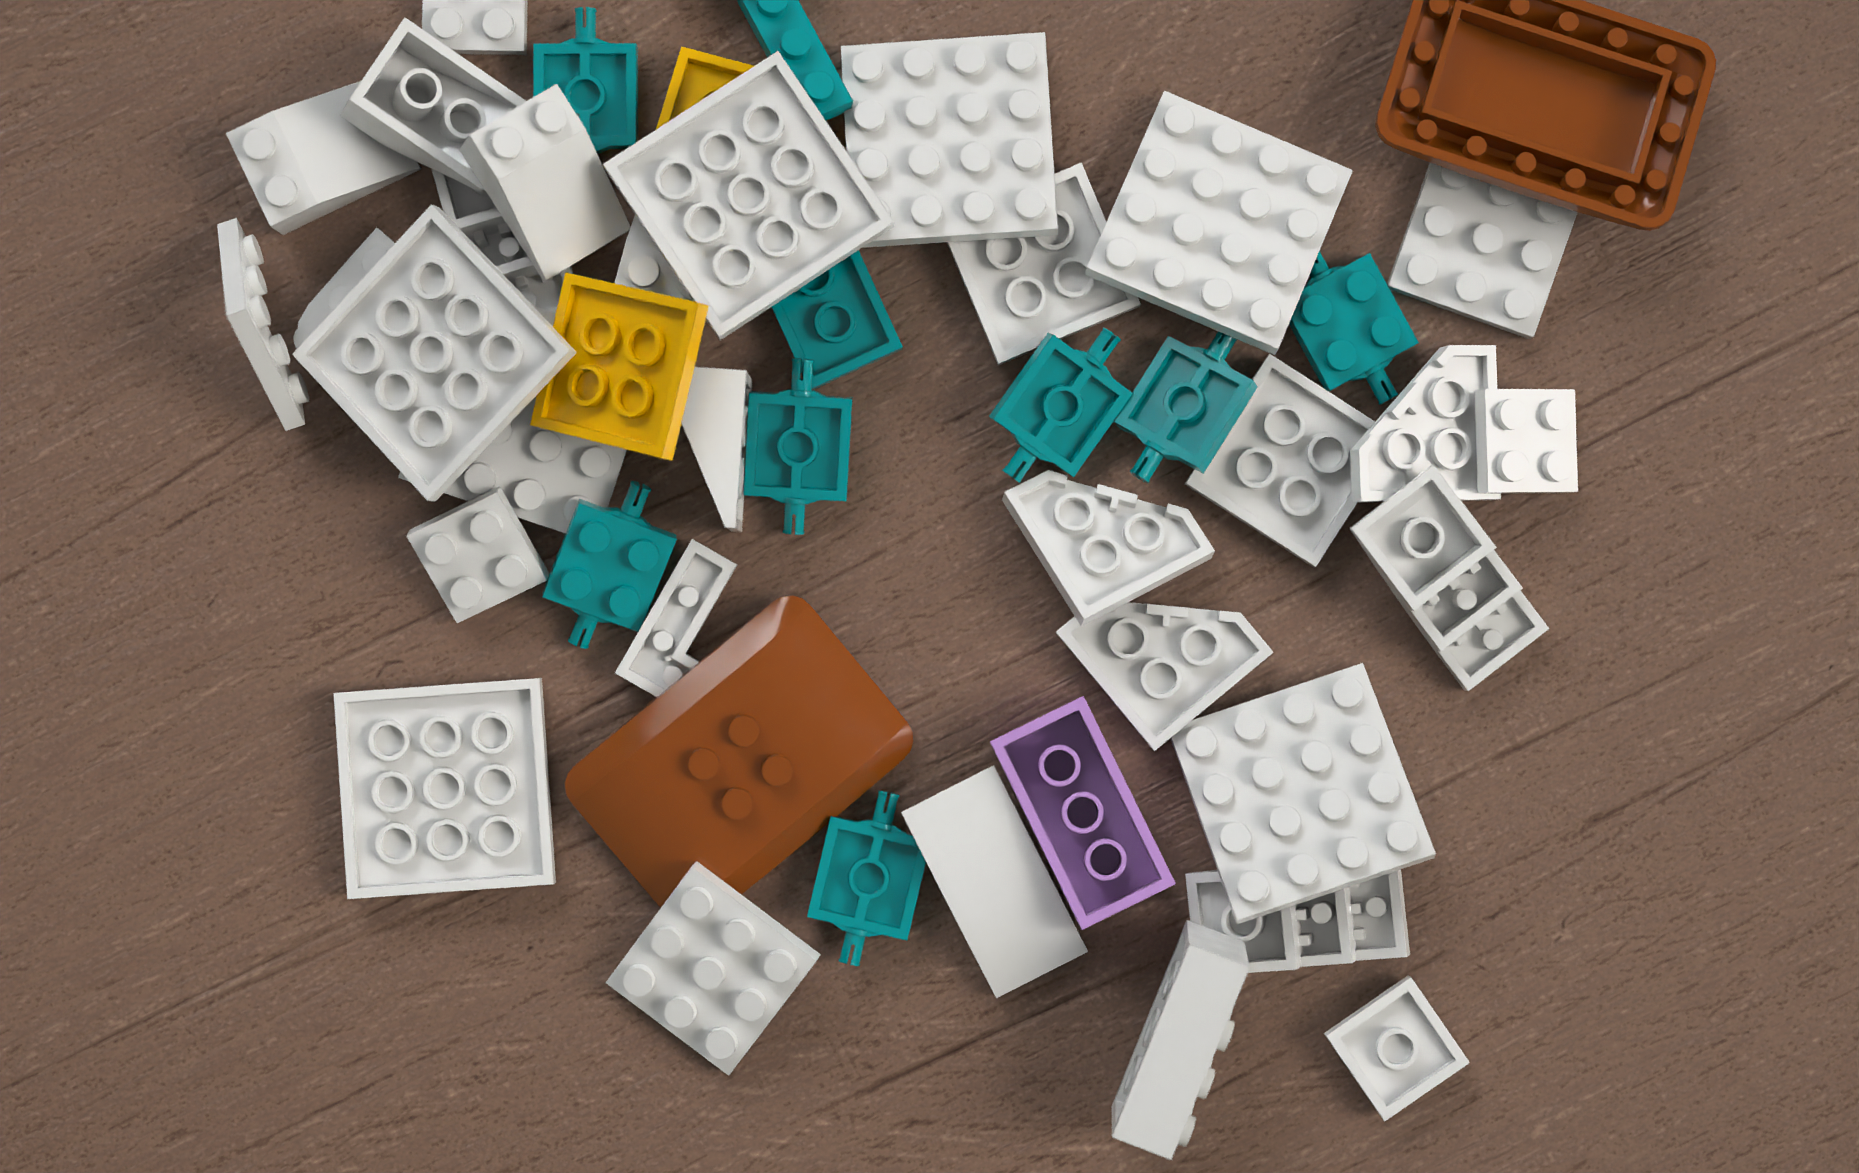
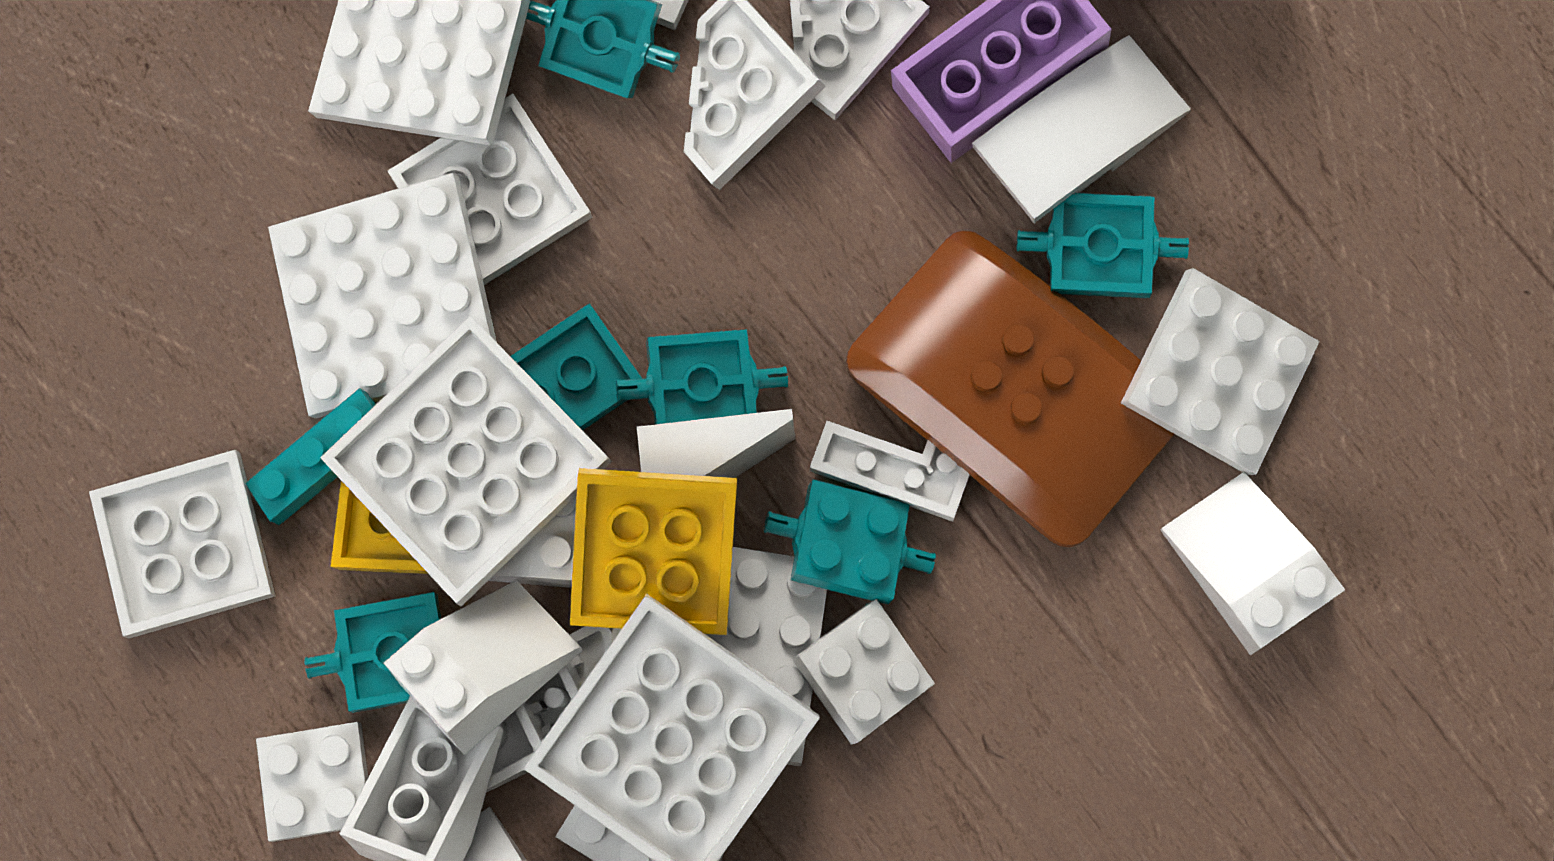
camera: 90 degrees left, 10 degrees down
(444, 788) = (1100, 665): white plate -> none
(517, 958) = (1251, 562): none -> white slope
(1061, 404) = (619, 147): teal plate -> none

